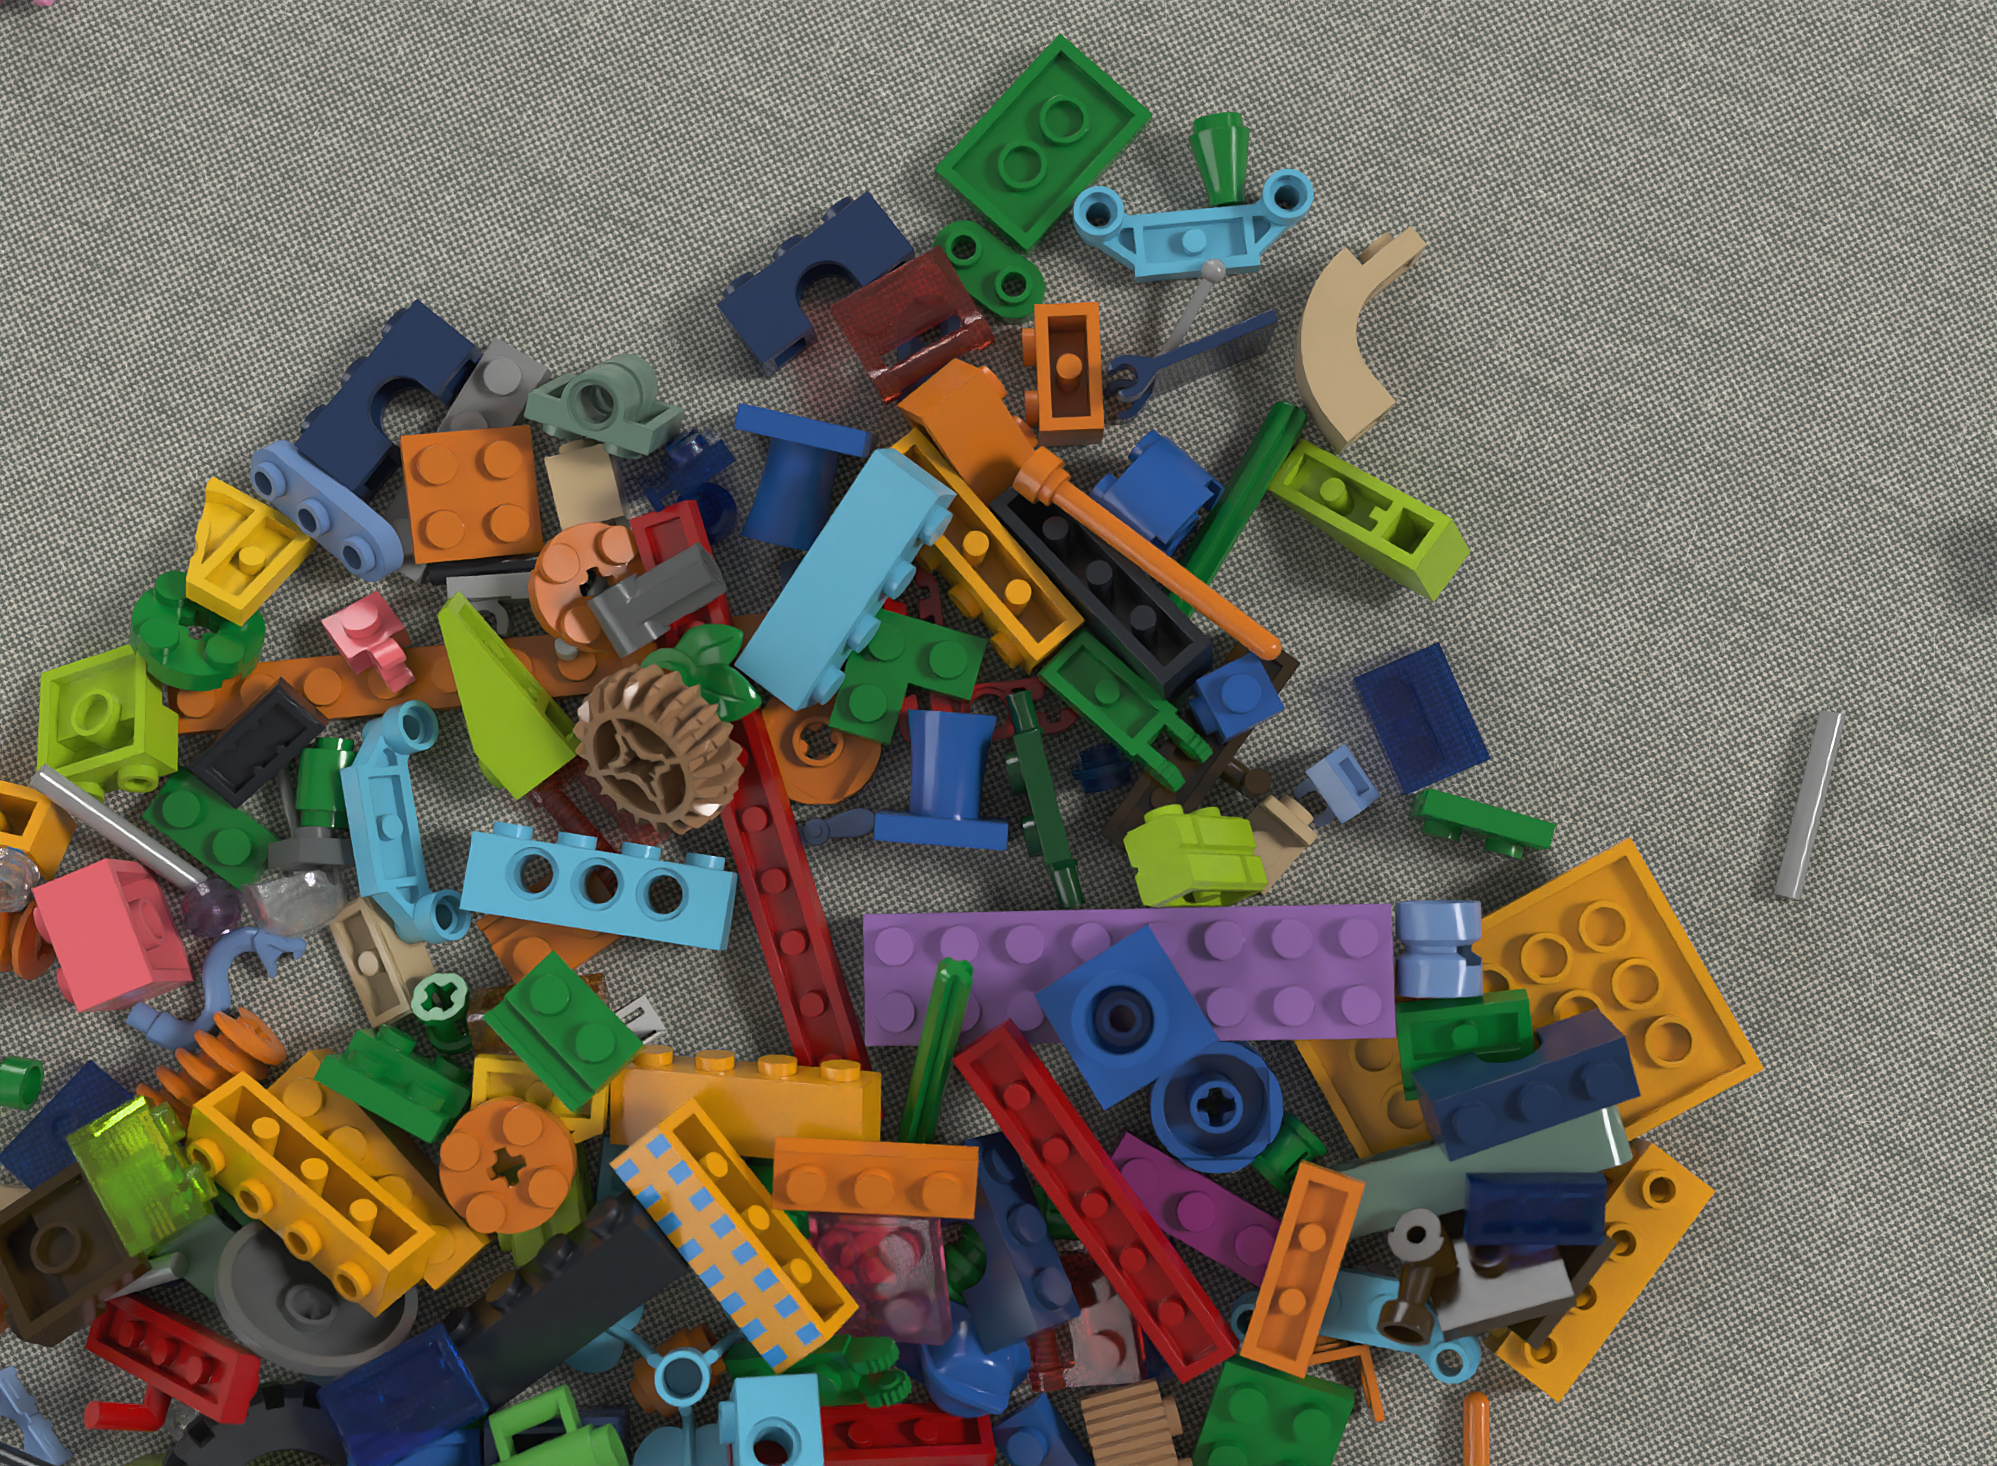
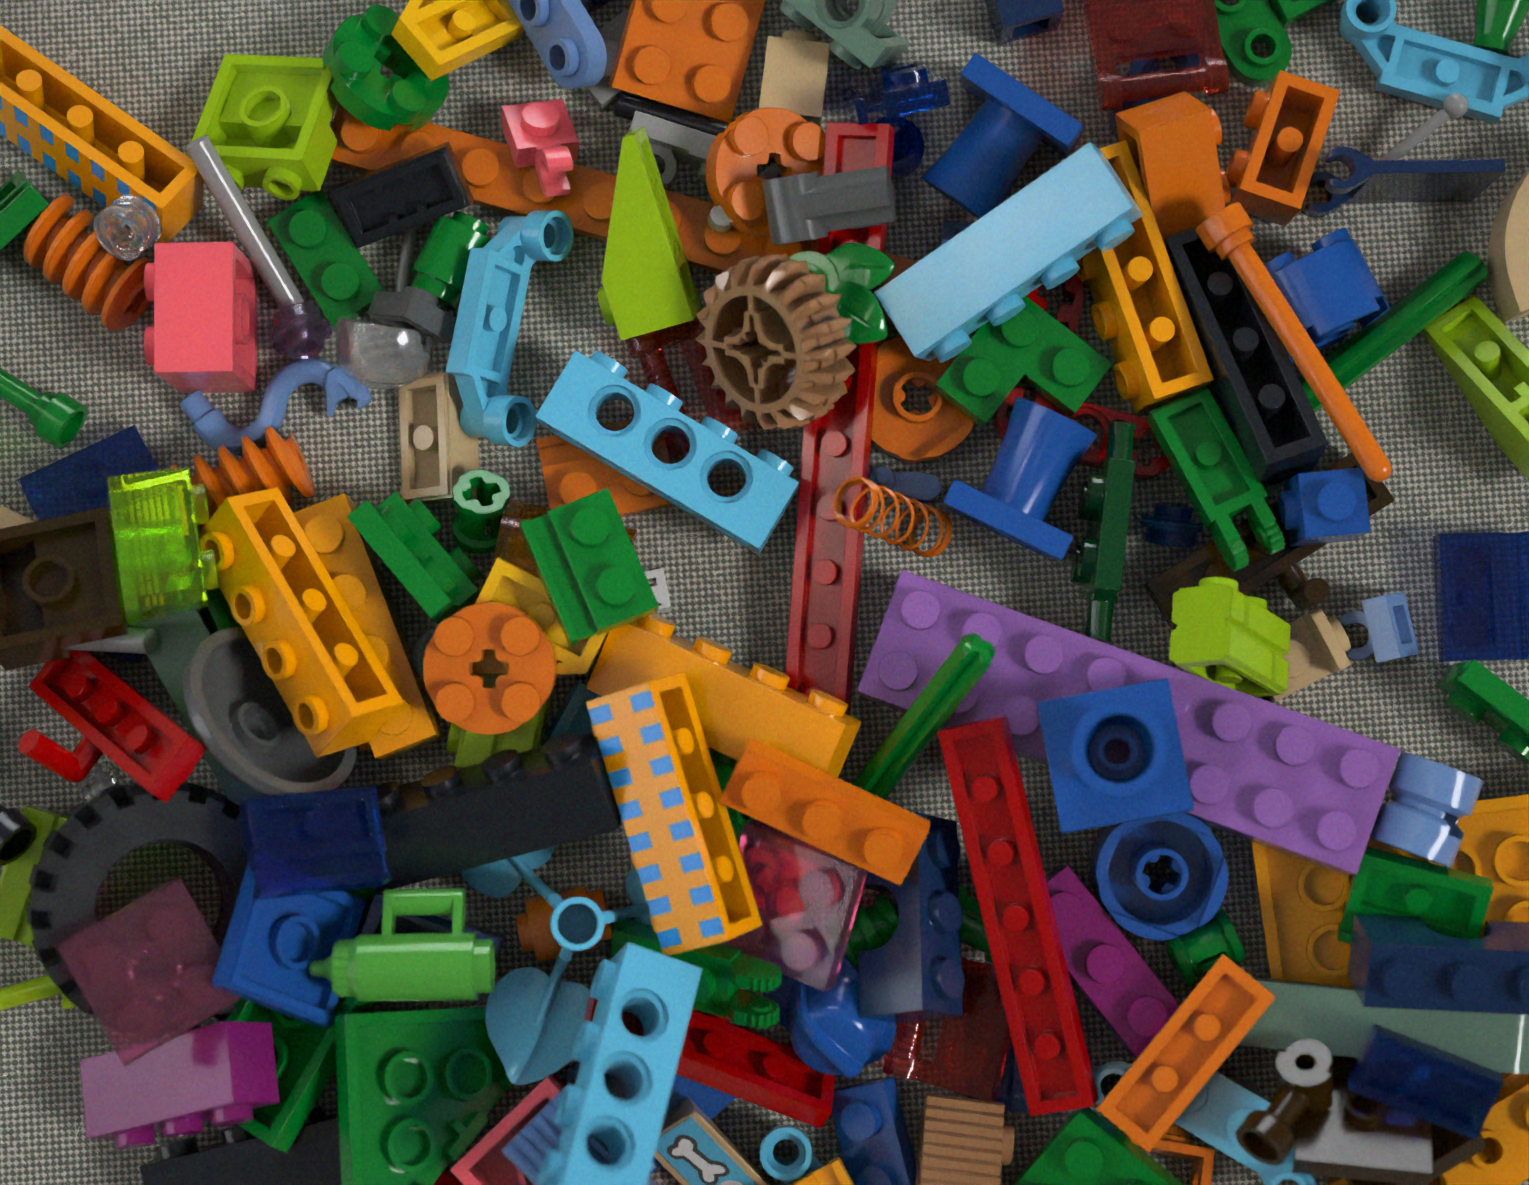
camera: 15 degrees right, 0 degrees up
(803, 852) = (875, 490): none -> orange piece

